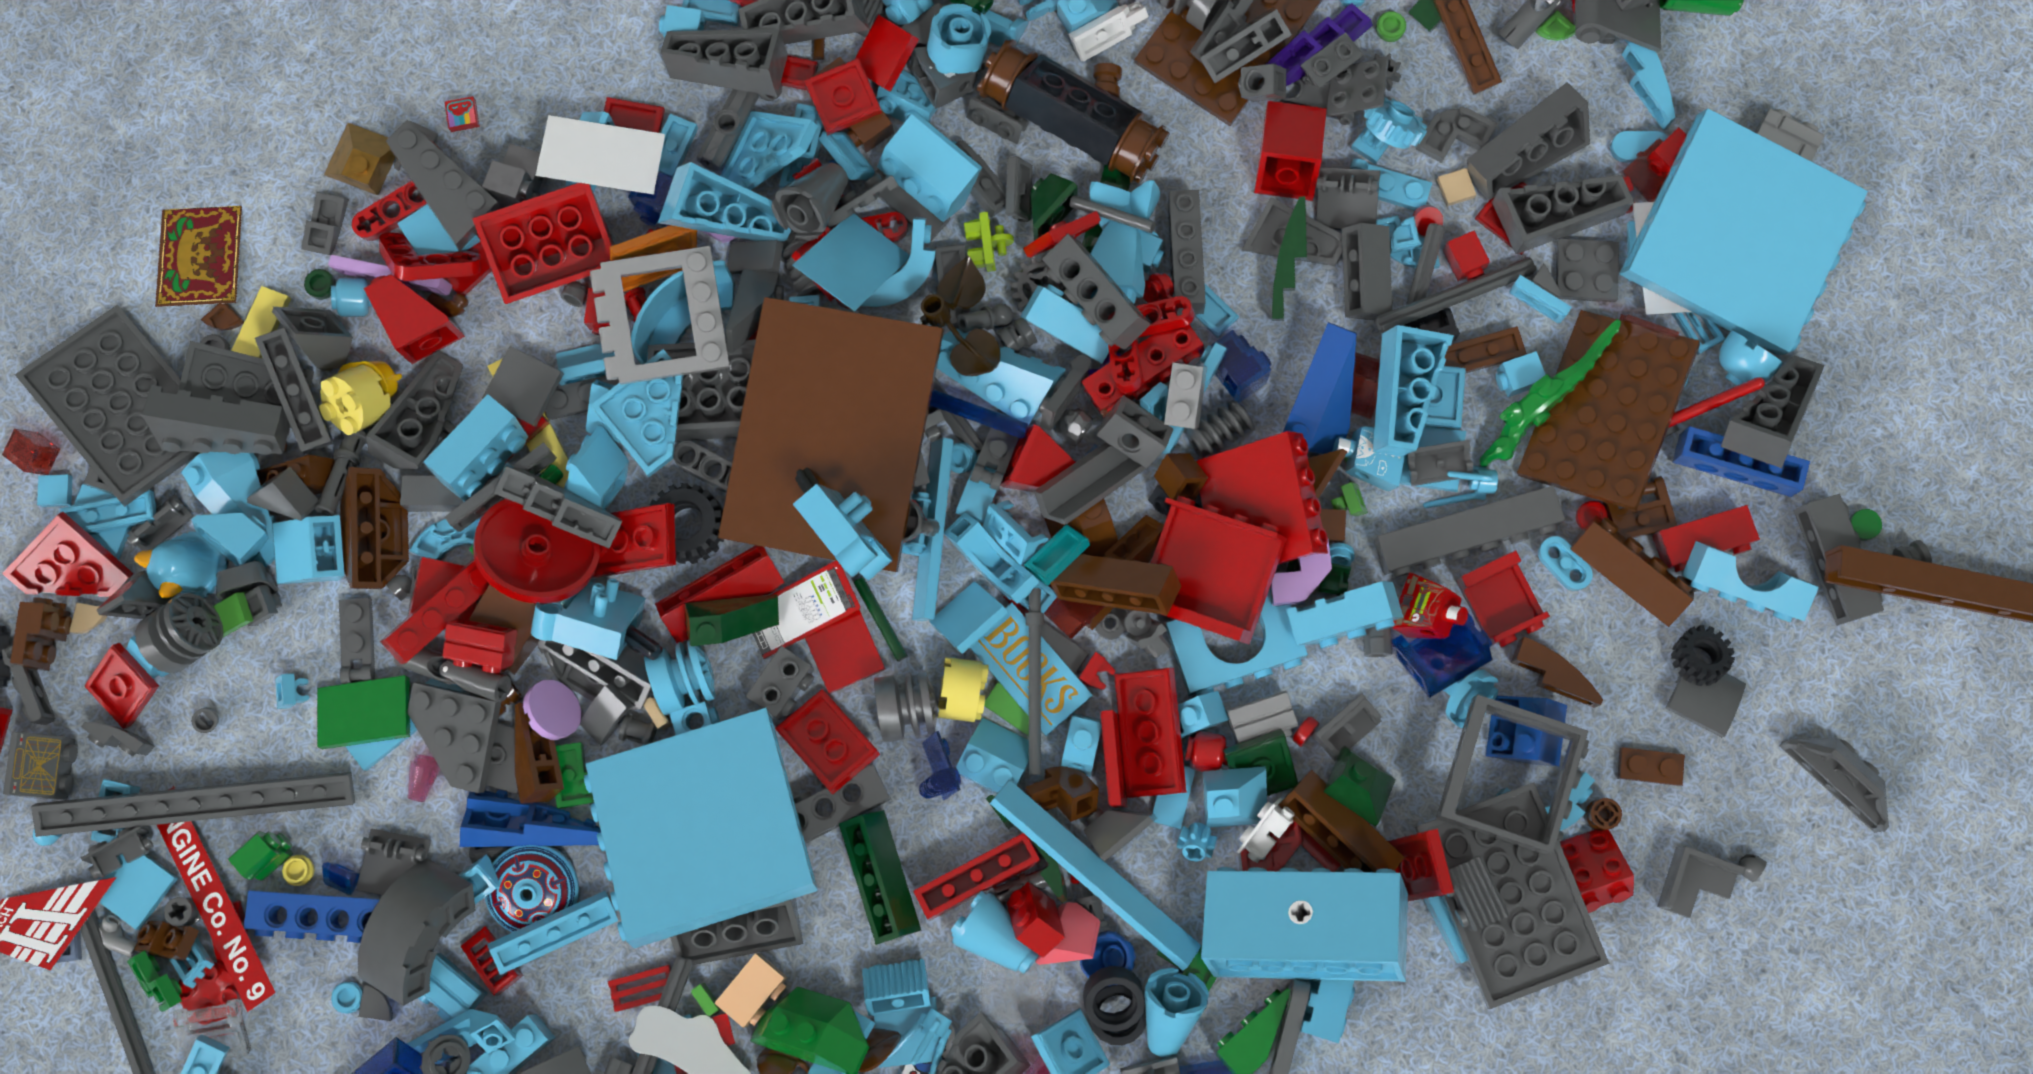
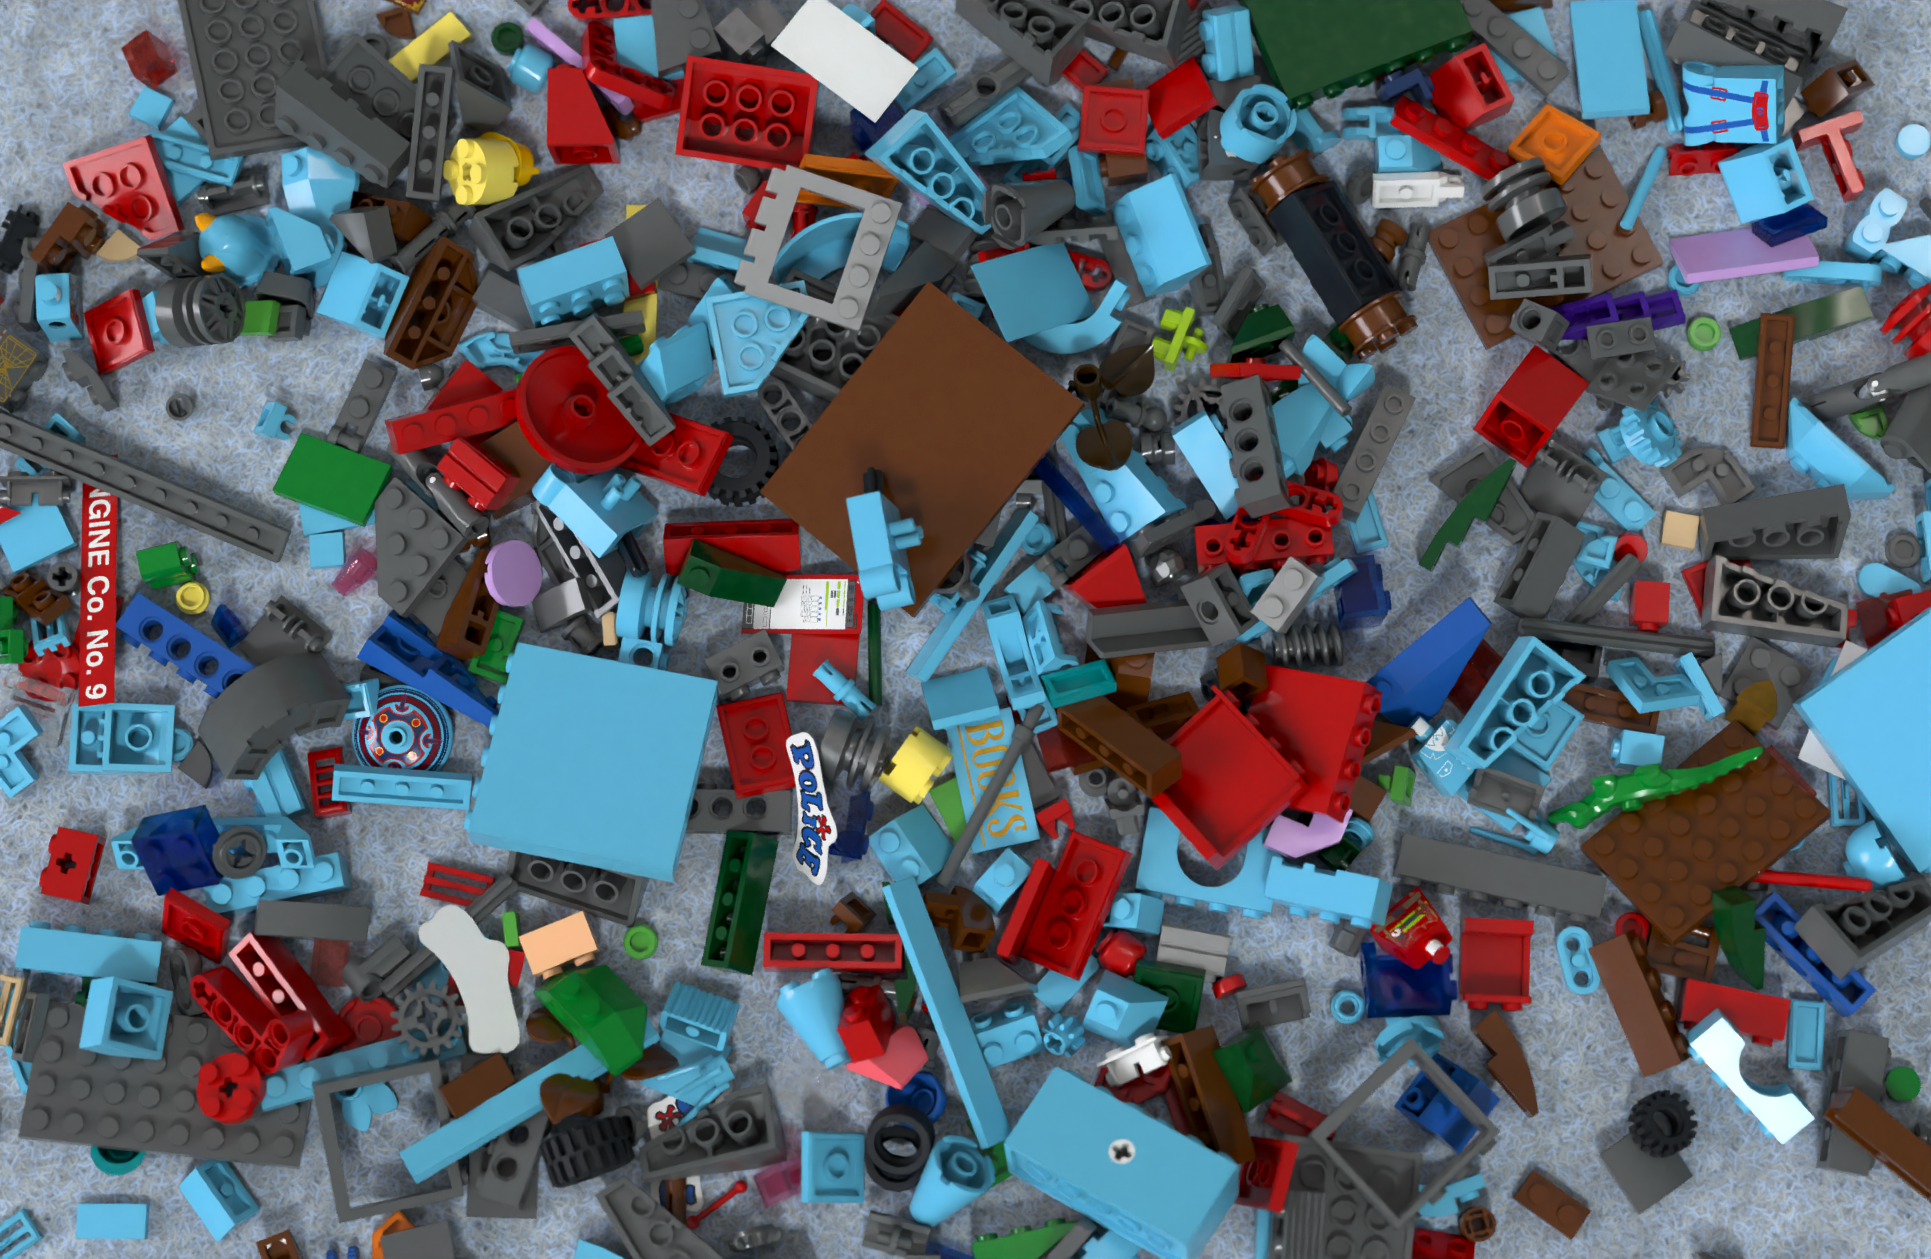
camera: 25 degrees right, 0 degrees up
(57, 685) = (60, 301): none -> medium azure torso
(299, 1018) = (121, 739): none -> medium azure slope
(389, 772) = (327, 550): none -> medium azure tile
(816, 952) = (640, 942): none -> bright green tile
(871, 660) = (844, 689): none -> medium azure pin
(907, 780) = (815, 822): none -> sticker
(975, 835) = (853, 913): none -> reddish brown tile
(1063, 49) = (1359, 185): none -> dark grey animal
(1134, 81) = (1413, 256): none -> dark grey pin
(1151, 865) = (1007, 1033): none -> medium azure bracket
(1408, 687) = (1357, 1001): none -> medium azure plate
(1413, 807) = (1293, 1116): none -> red hinge
(1505, 323) = (1651, 692): none -> medium azure plate
(1540, 70) = (1828, 458): none -> medium azure wedge
(1591, 292) = (1754, 706): none -> pearl gold tile
(1634, 113) = (1902, 550): none -> dark grey tile
(1682, 474) = (1740, 934): none -> dark green slope
(1772, 526) = (1806, 1035): none -> medium azure tile

